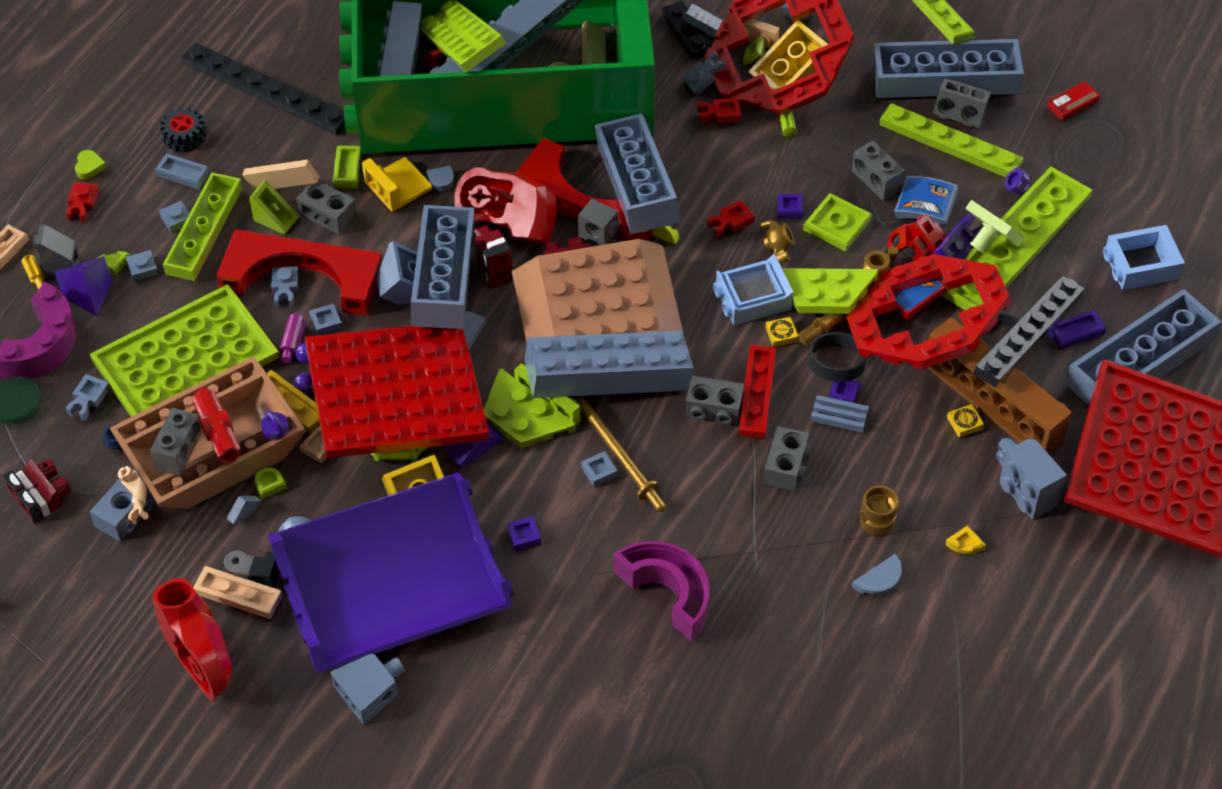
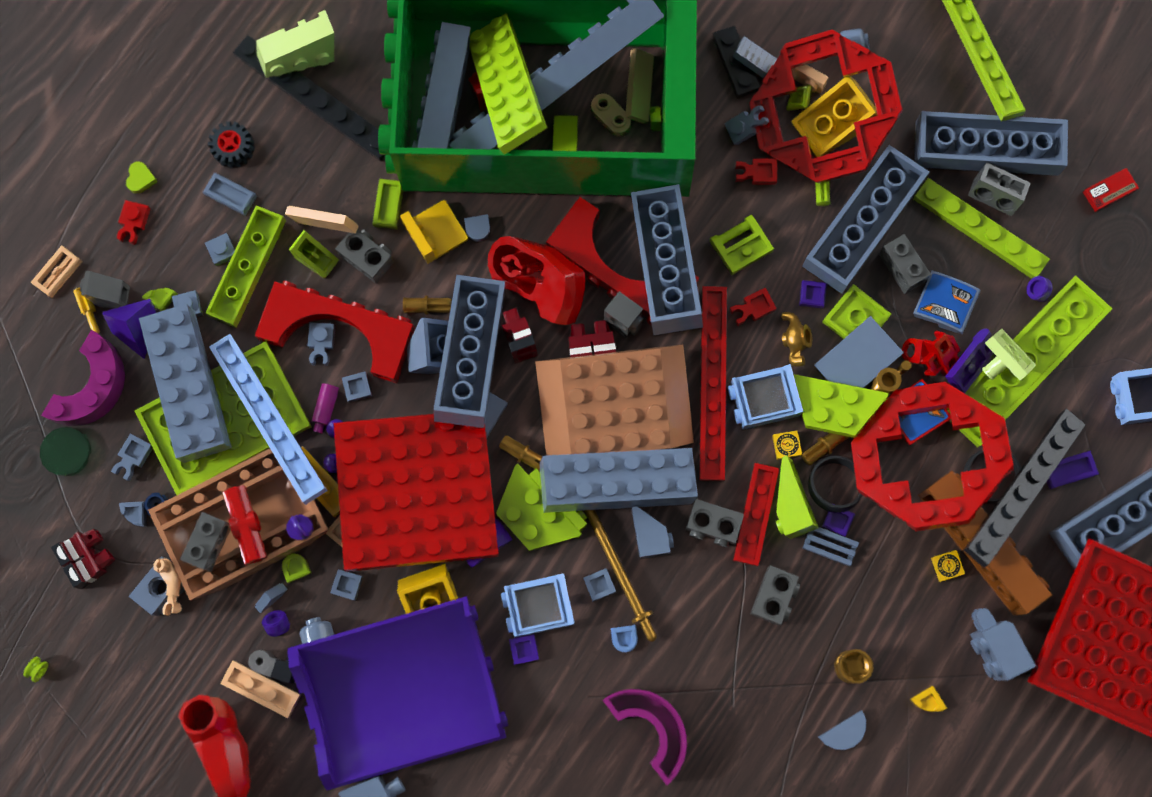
camera: 10 degrees right, 25 degrees up
(91, 448) = (134, 512): none -> sand blue tile
(146, 320) = (185, 383): none -> sand blue brick
(236, 337) = (268, 419): none -> light blue plate
(249, 42) = (298, 48): none -> yellowish green wedge
(250, 528) = (276, 623): none -> dark purple tile
(326, 492) = (346, 584): none -> sand blue tile
(381, 244) = (426, 305): none -> pearl gold axle
(501, 357) = (520, 452): none -> pearl gold axle
(536, 489) = (537, 605): none -> window
(631, 514) = (624, 638): none -> medium blue tile
(648, 417) = (650, 535): none -> sand blue slope
(698, 287) = (713, 384): none -> red plate
(716, 175) = (745, 251): none -> lime plate
(794, 377) = (793, 505): none -> lime slope
(832, 136) = (865, 219): none -> sand blue brick
(845, 245) = (859, 356): none -> sand blue tile

